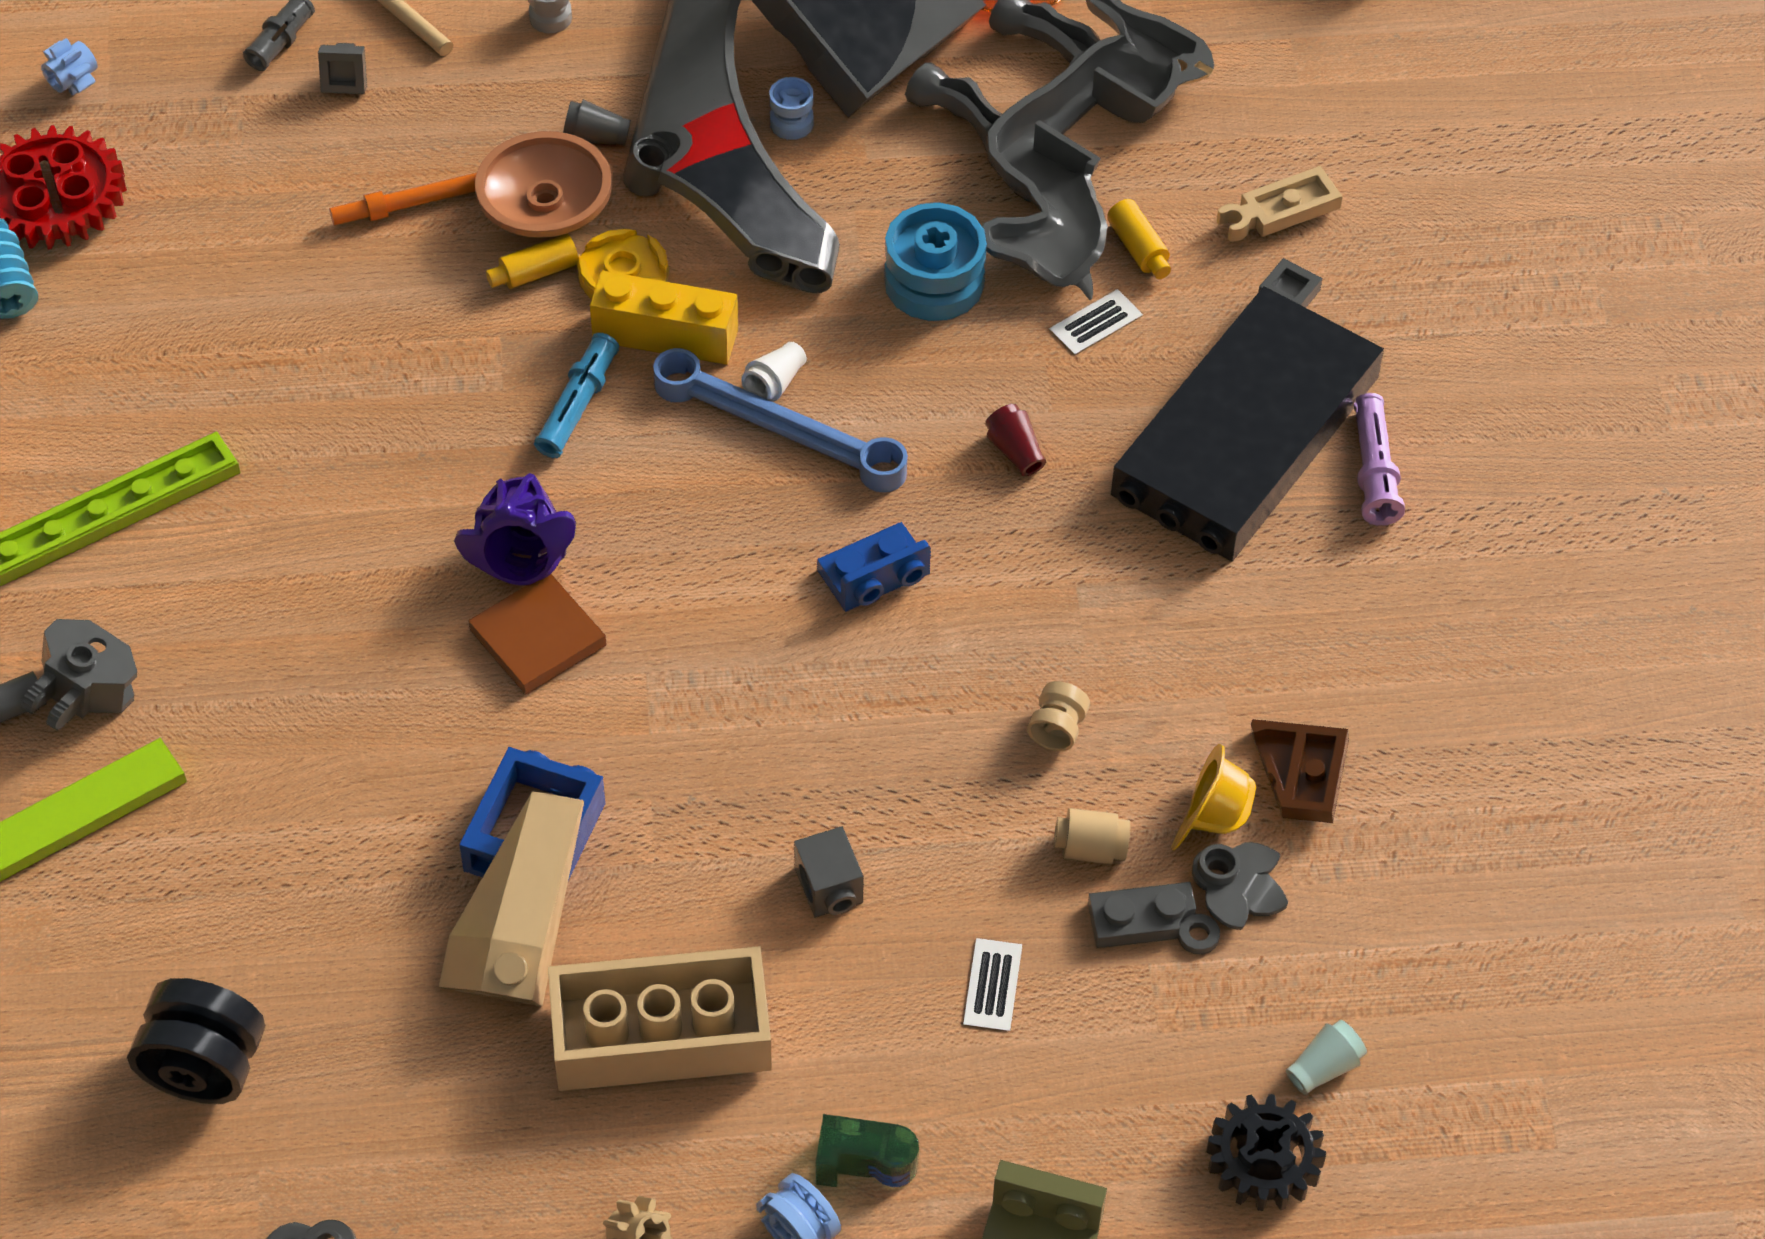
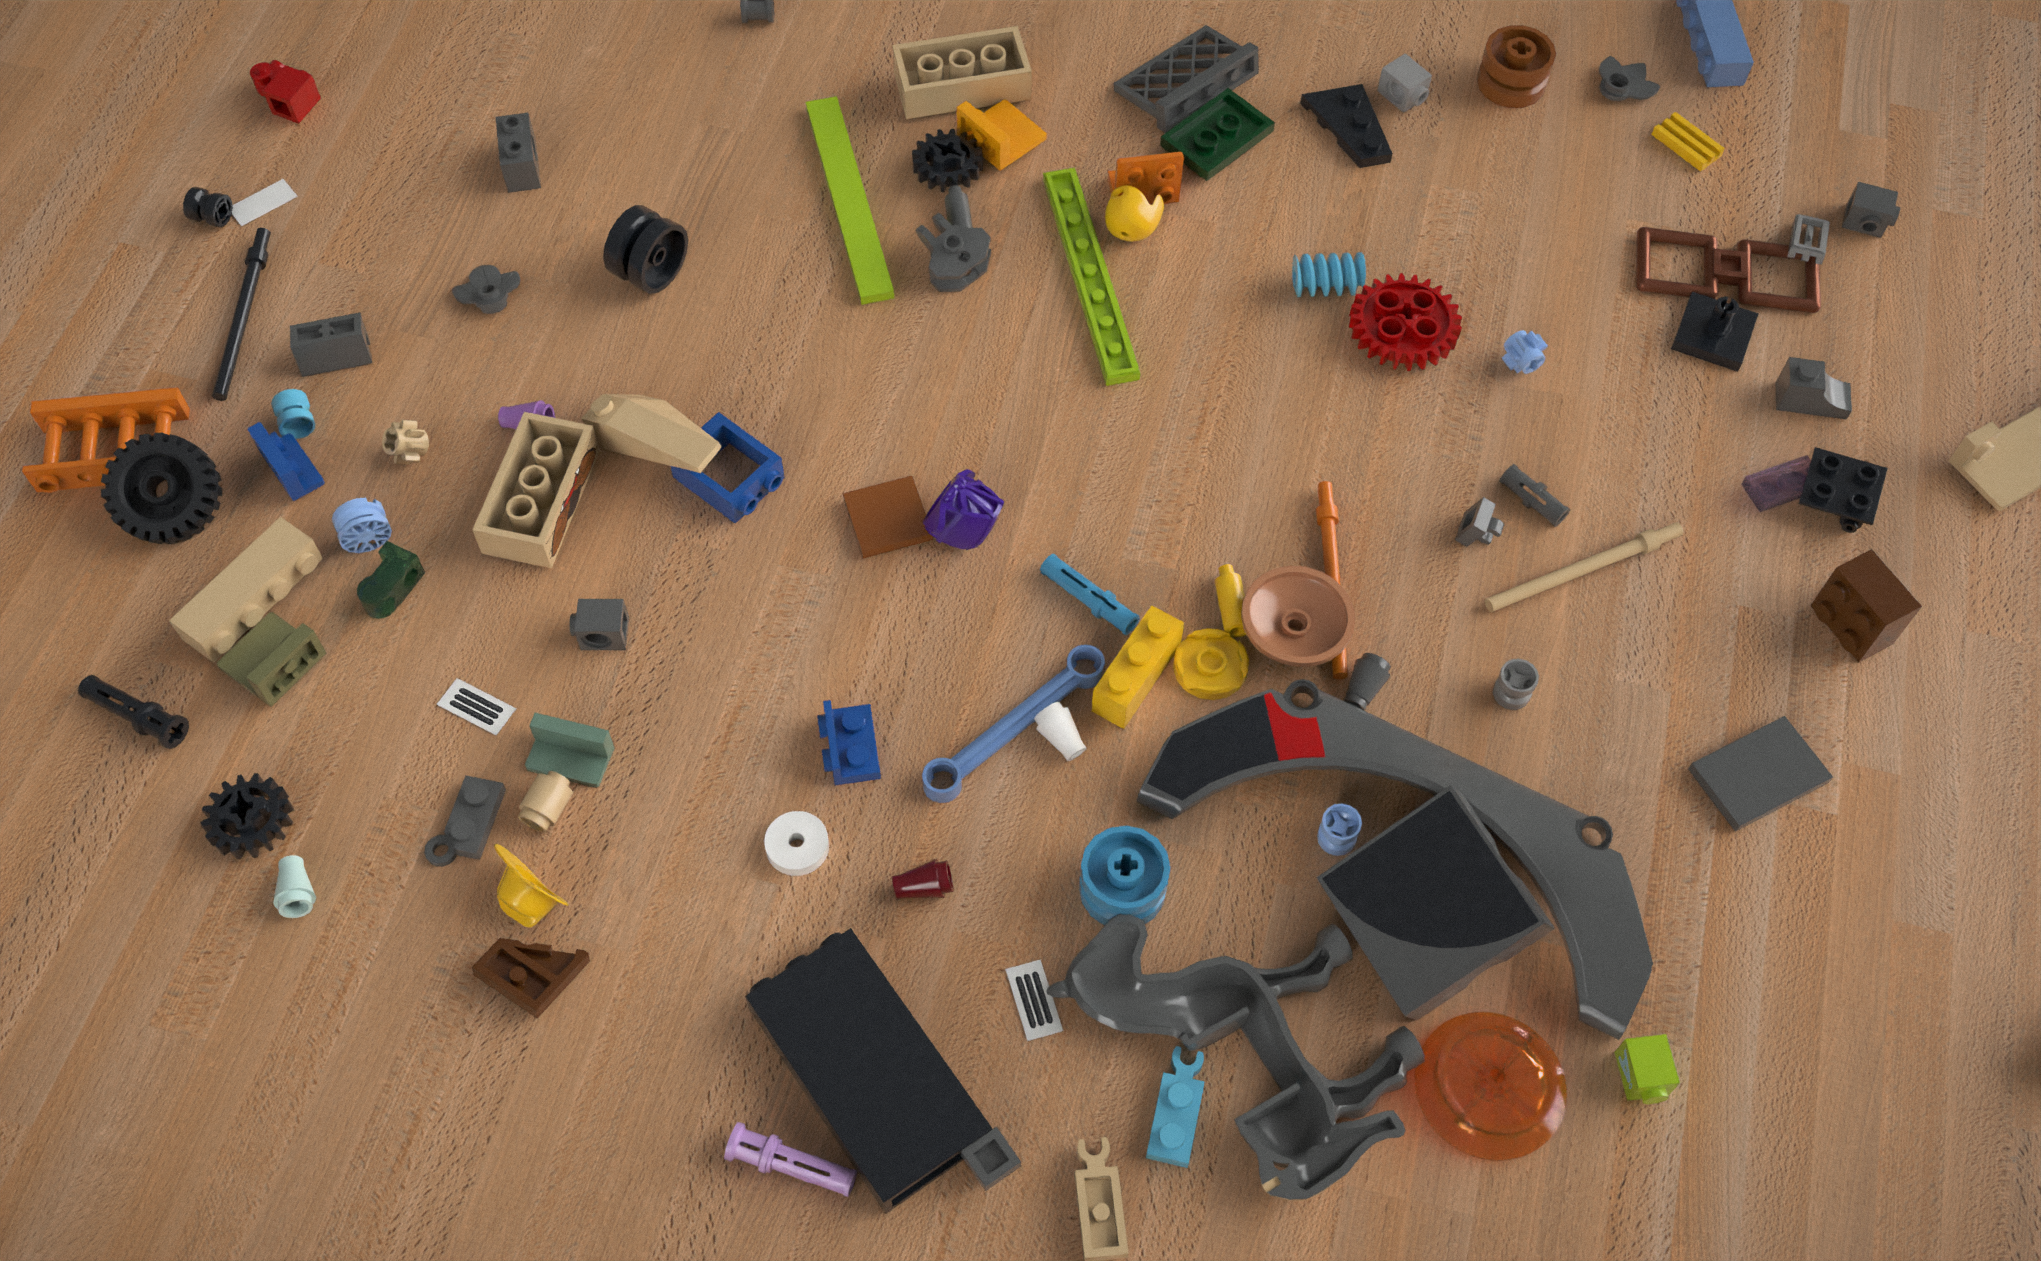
camera: 110 degrees right, 5 degrees up
(533, 1098) = (510, 416): none -> medium lavender cone
(1015, 846) = (569, 749): none -> sand green panel
(1017, 595) = (802, 859): none -> white piece
(1056, 721) = (654, 814): tan wheel -> none
(1139, 238) = (1102, 1062): yellow cylinder -> none
(1156, 175) = (1176, 1112): none -> medium azure plate
(1244, 885) = (456, 891): dark grey plate -> none

